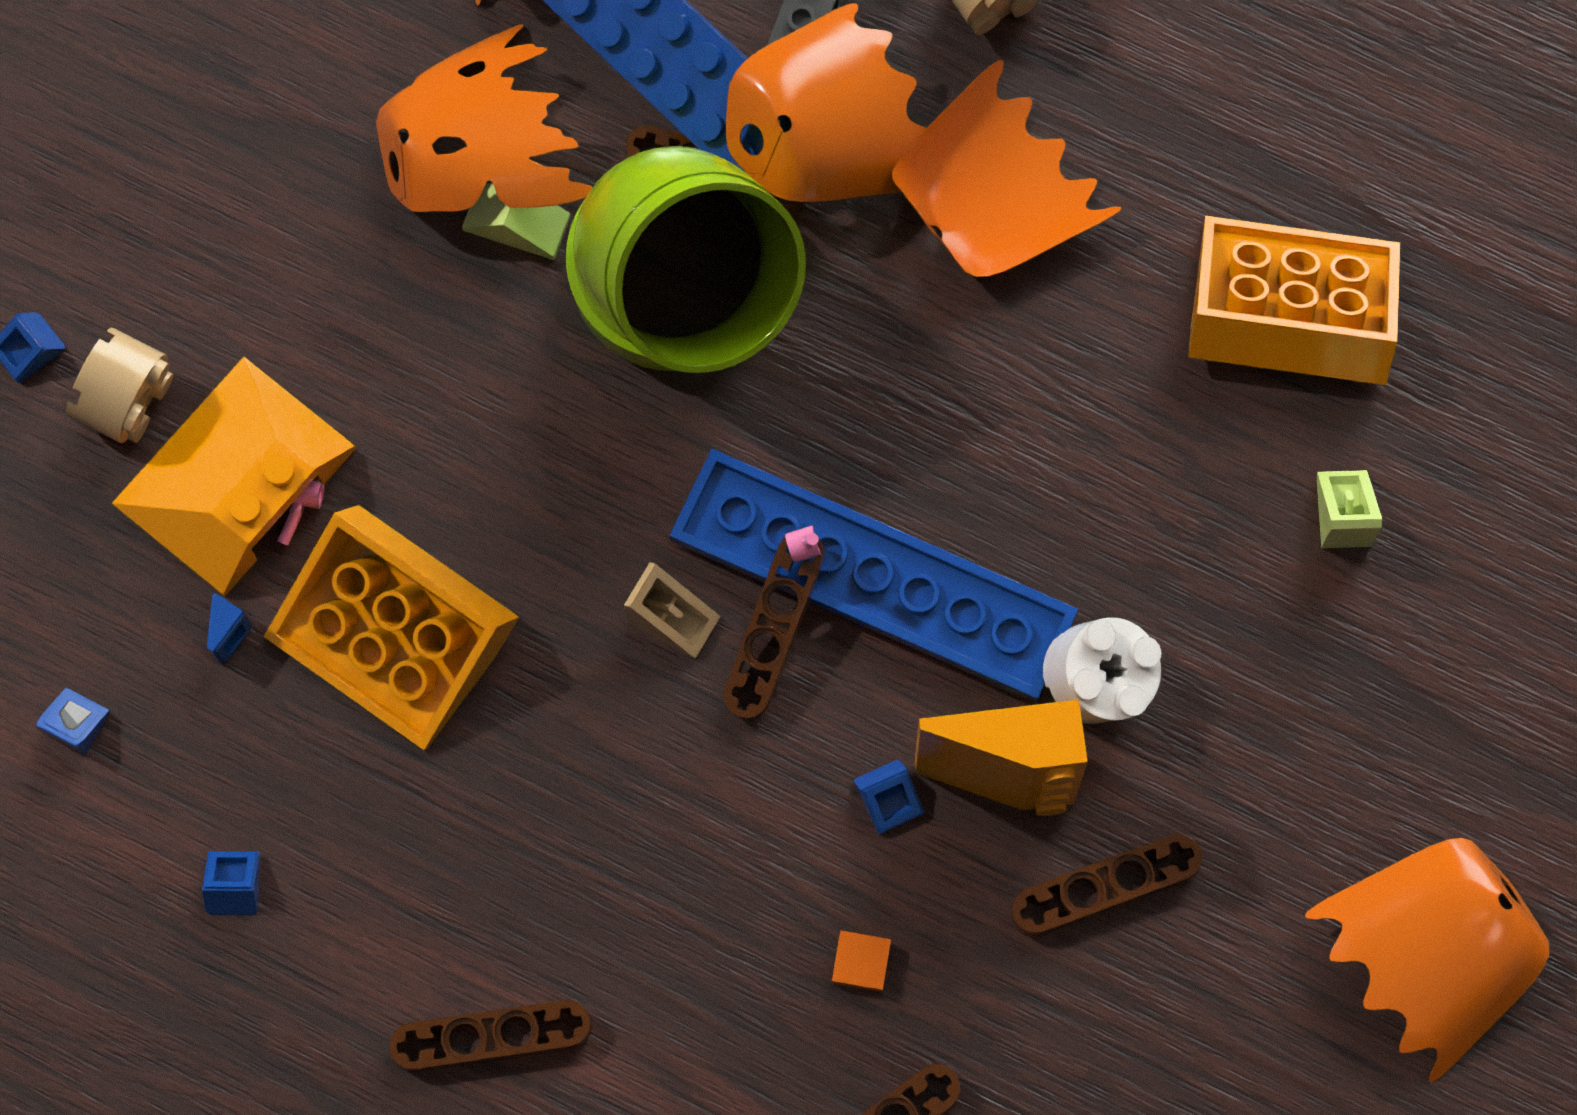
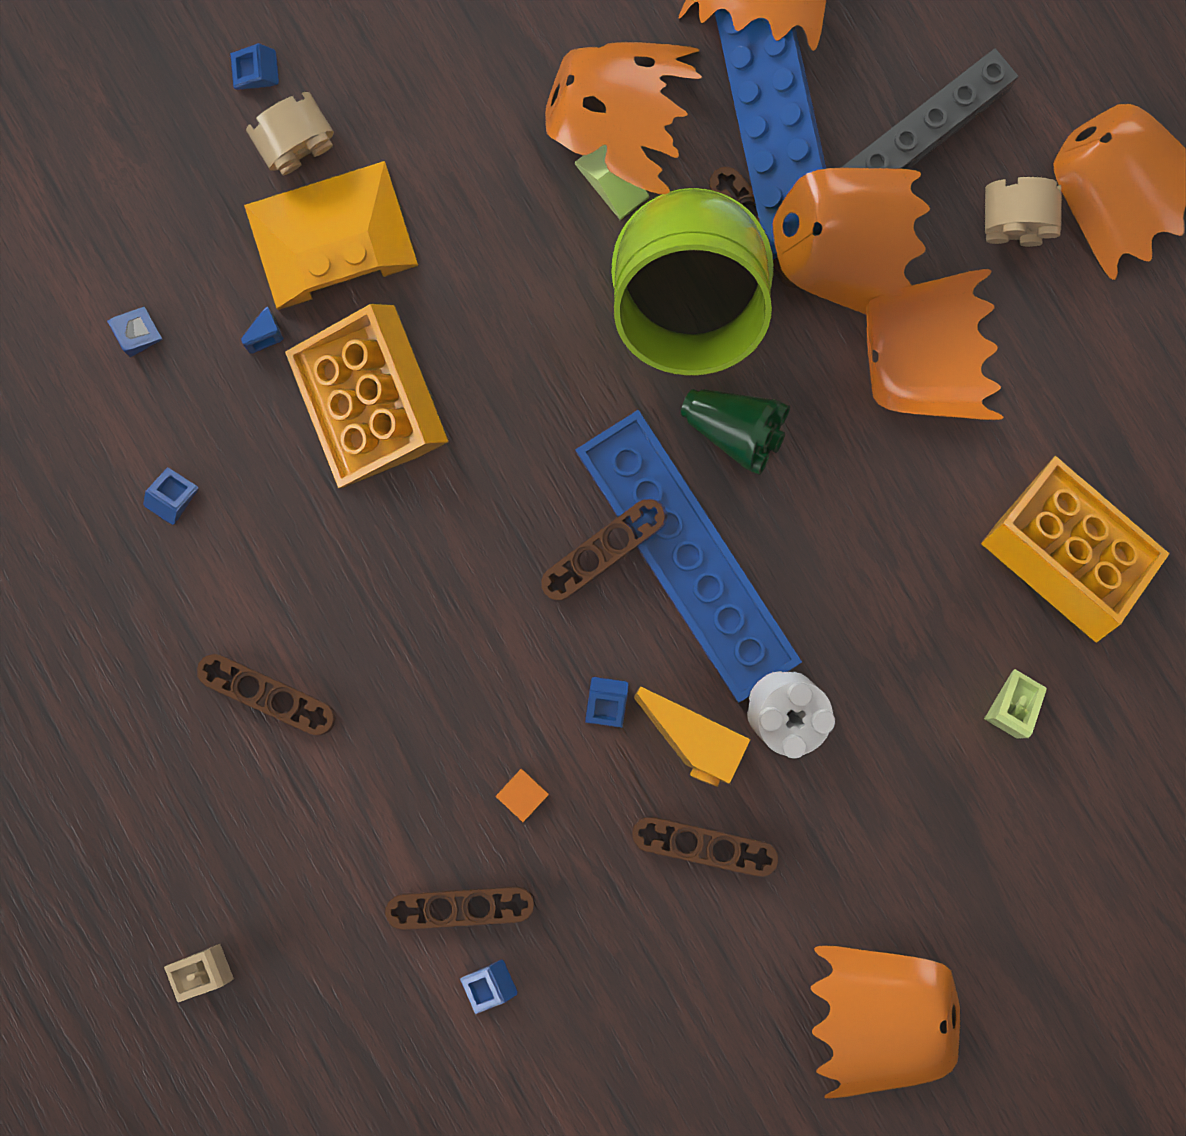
camera: 30 degrees right, 10 degrees up
(310, 497) = (368, 280): bright pink hand -> none
(670, 612) = (545, 499): tan slope -> none
(802, 544) = (650, 512): bright pink hand -> none
(834, 394) = (738, 424): none -> dark green cone

